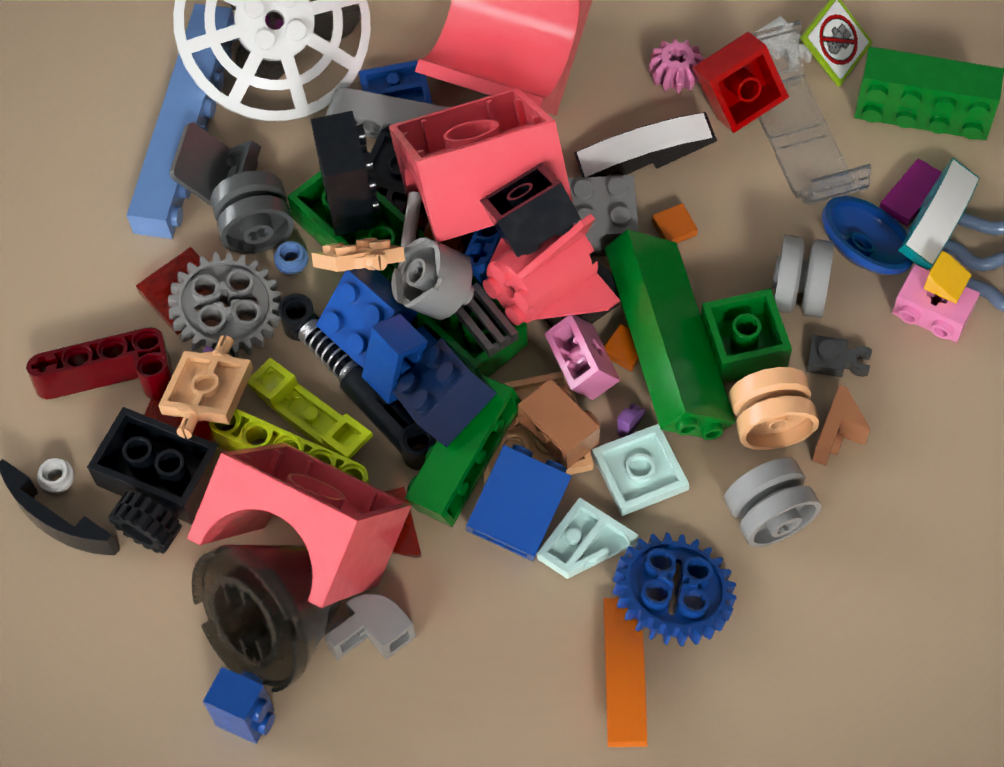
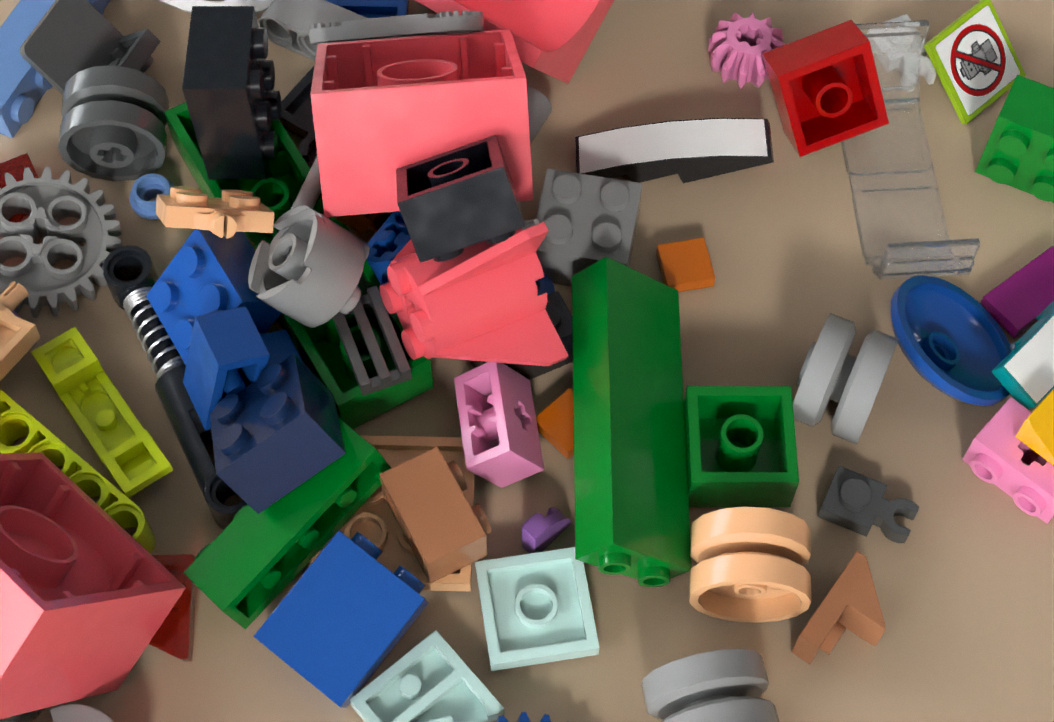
camera: 10 degrees right, 0 degrees up
(437, 102) = (396, 27): none -> light grey plate

